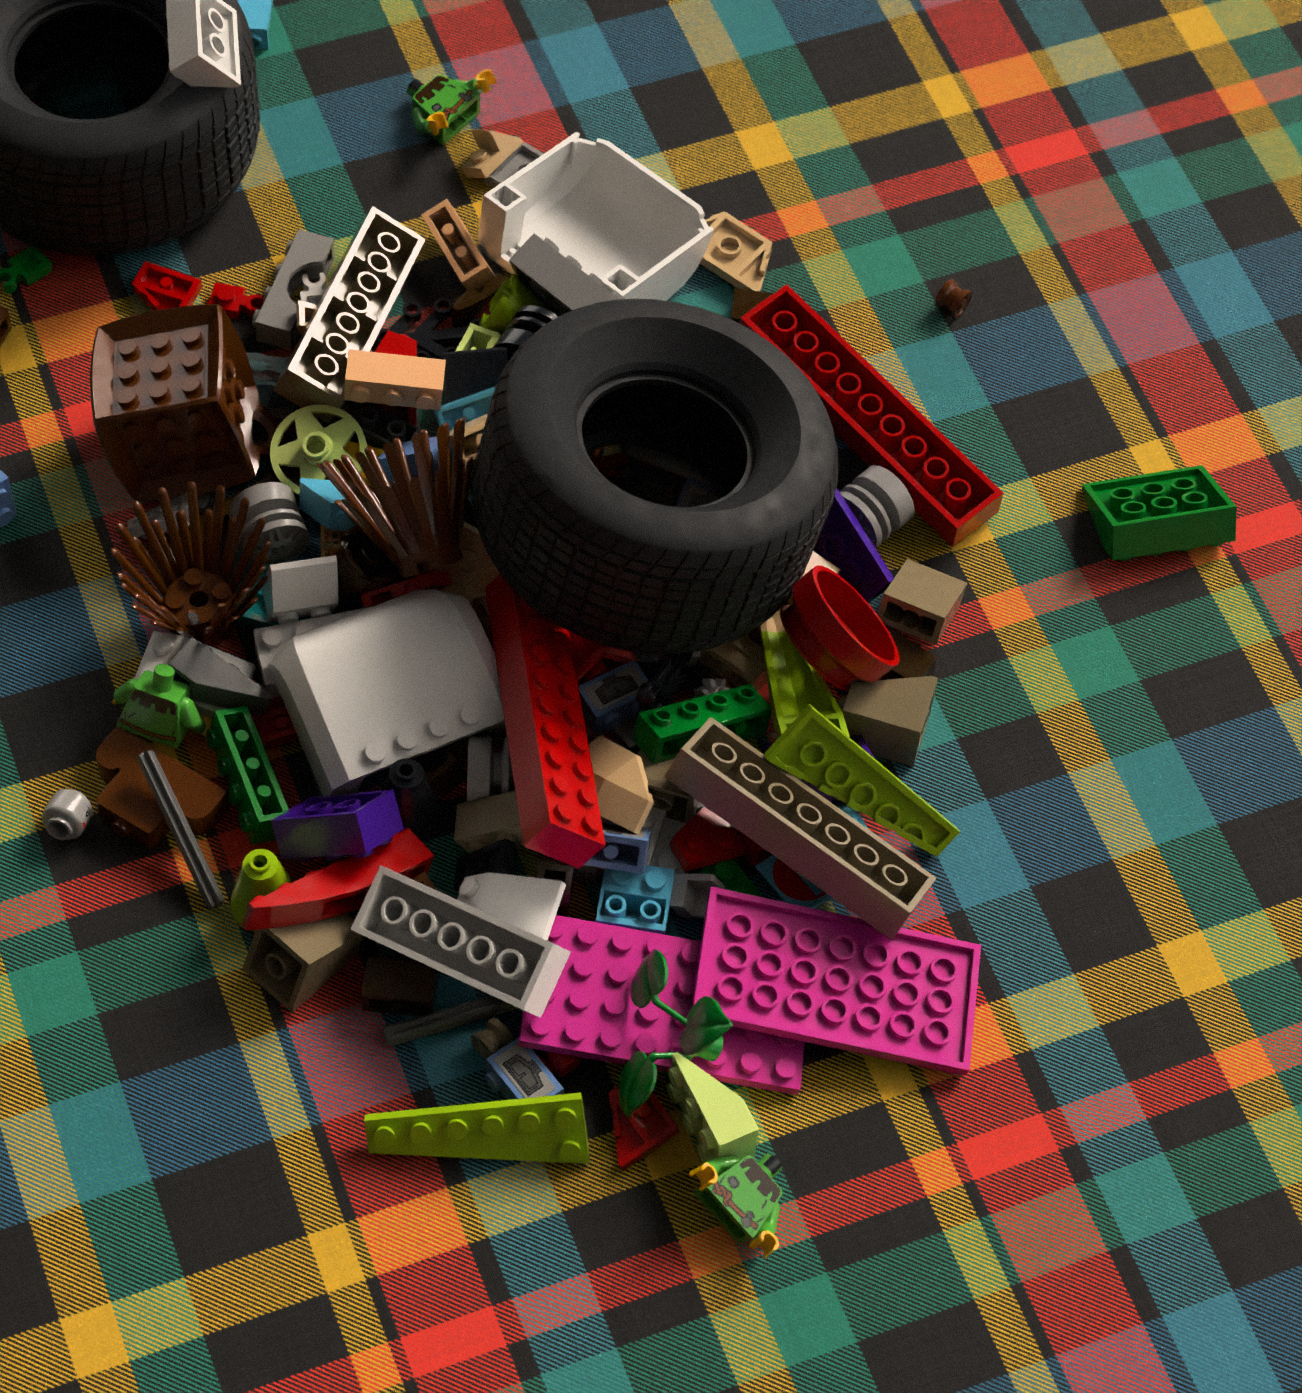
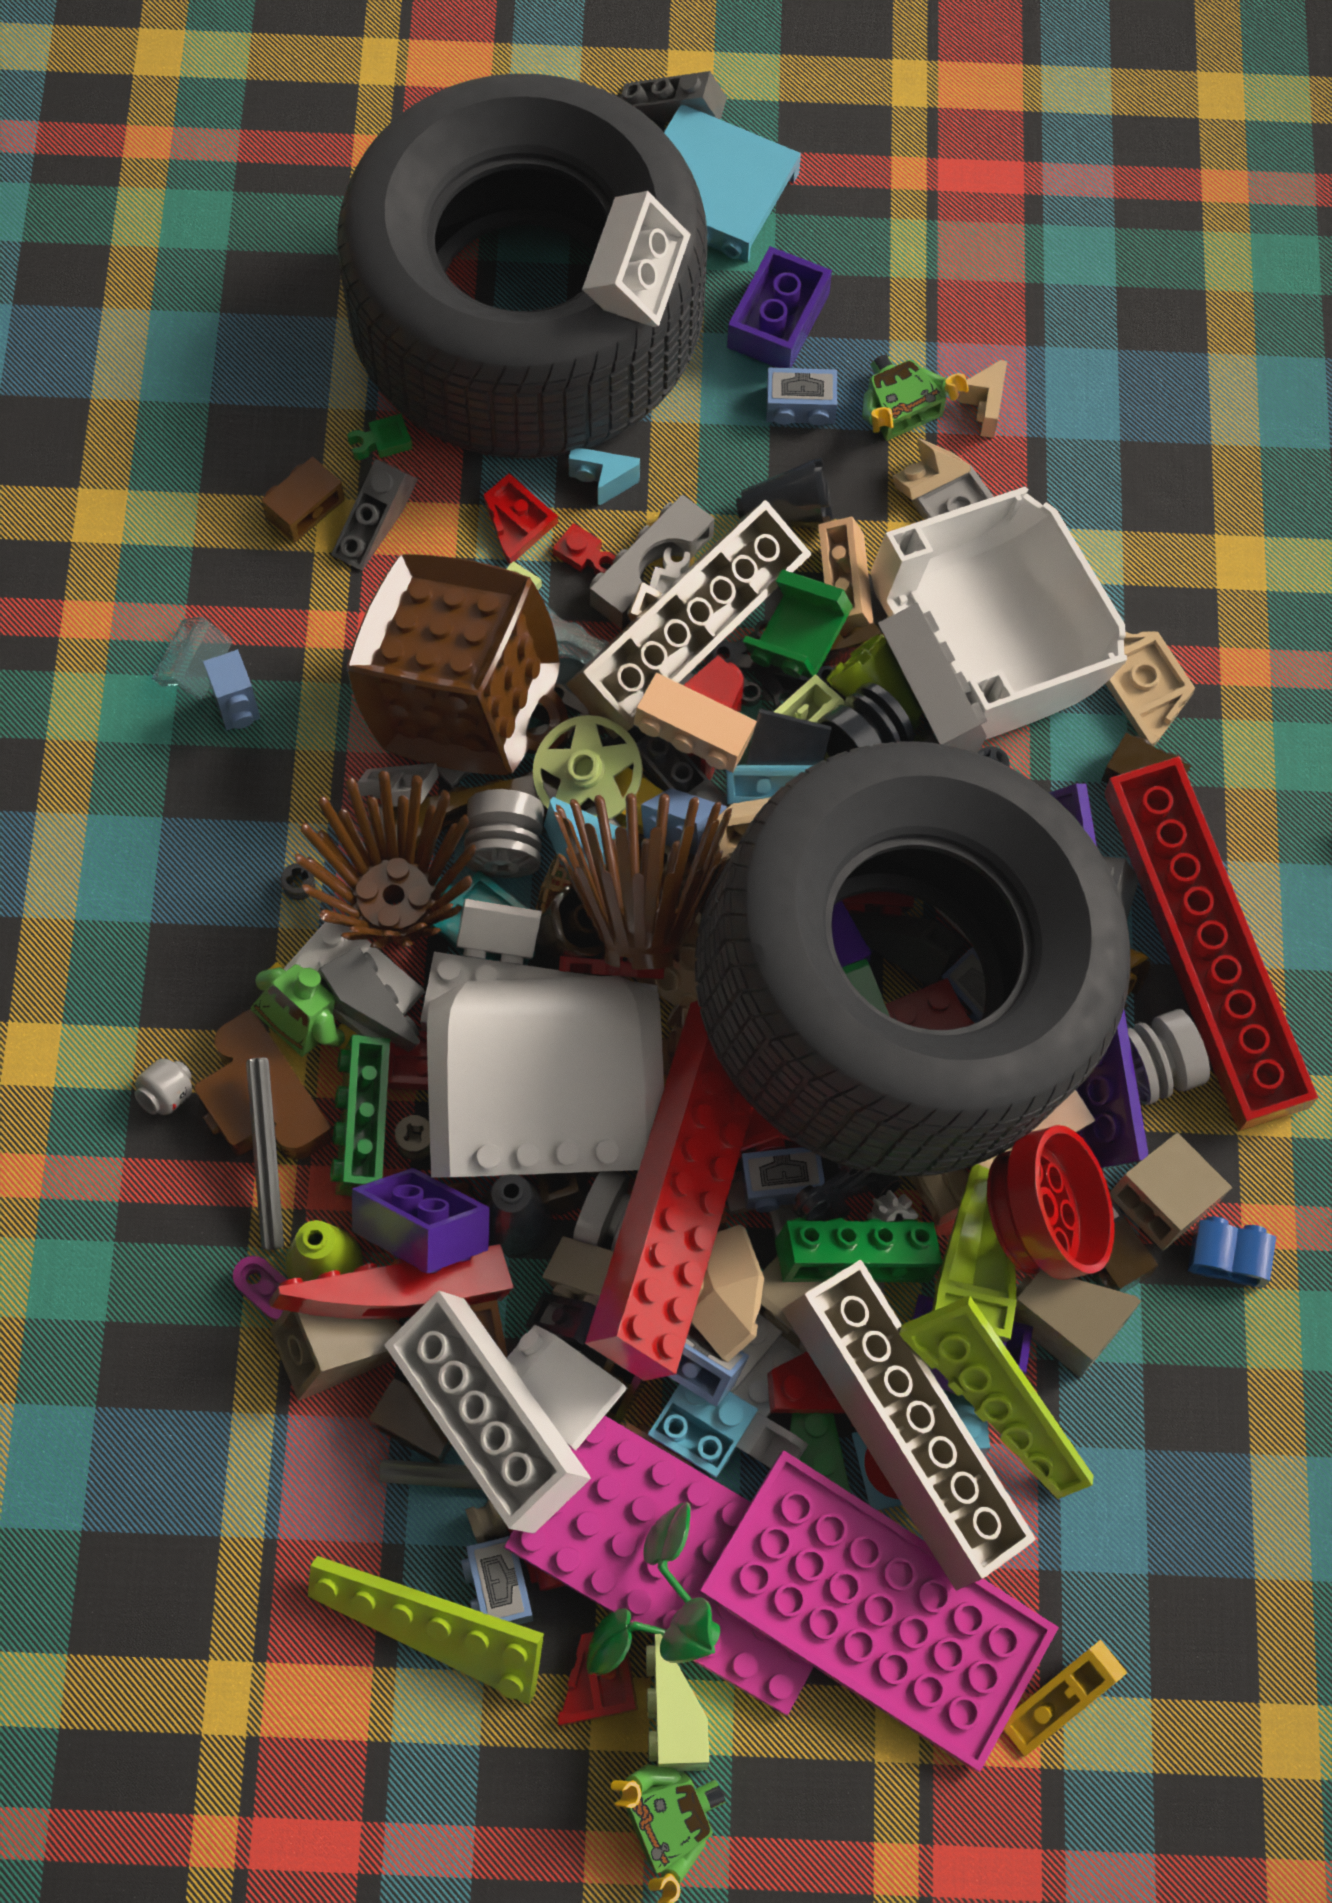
camera: 25 degrees right, 10 degrees up
(44, 326) = (374, 513): none -> dark grey slope
(105, 633) = (288, 878): none -> black bush
(228, 935) = (261, 1292): none -> magenta plate
(229, 232) = (611, 470): none -> medium azure slope
(299, 788) = (417, 1145): none -> dark tan wheel
(313, 71) = (779, 308): none -> dark purple brick
(360, 130) = (801, 396): none -> brick
(394, 196) = (796, 495): none -> black cone
(442, 291) = (801, 626): none -> green panel
(511, 85) = (986, 393): none -> tan slope
(988, 632) = (1232, 1252): none -> blue brick
(1007, 994) = (1063, 1697): none -> yellow slope

